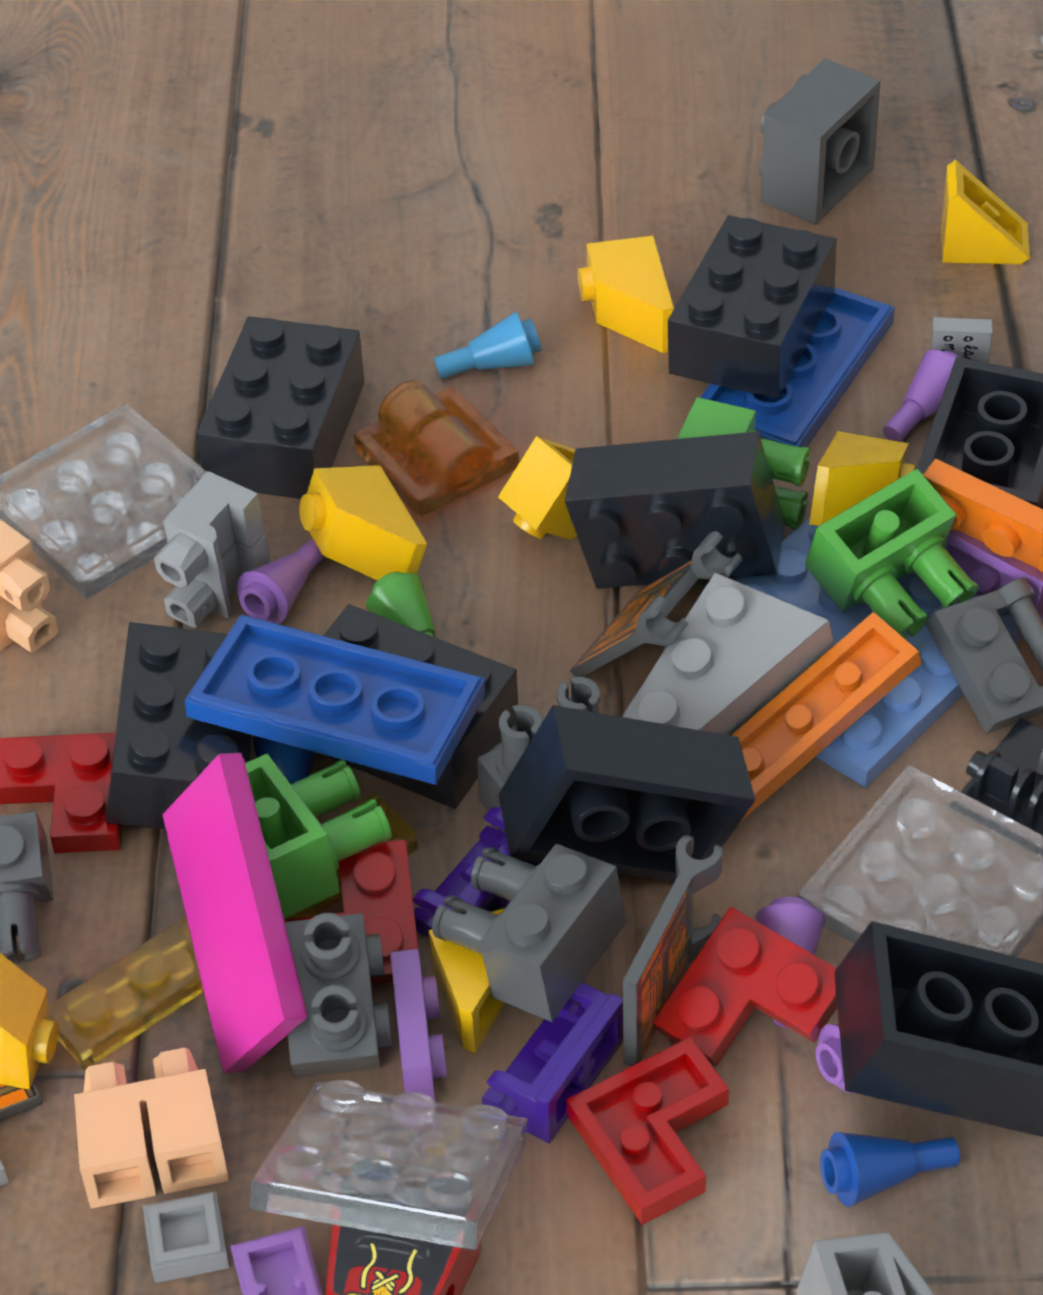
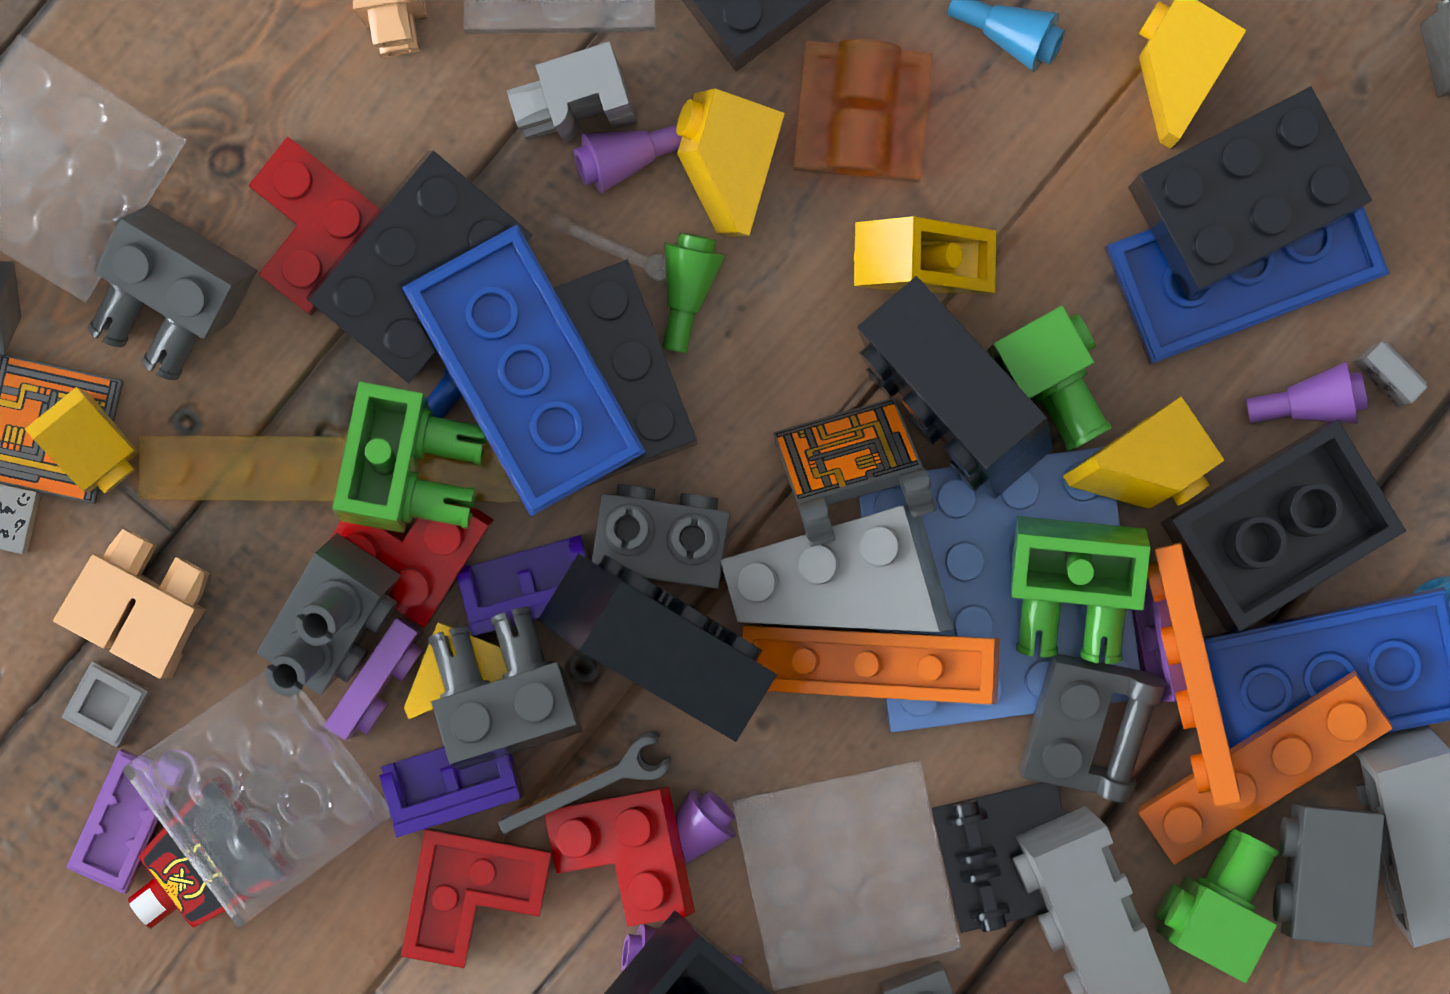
camera: 35 degrees right, 40 degrees up
(234, 914) = (298, 509): dark pink tile -> none

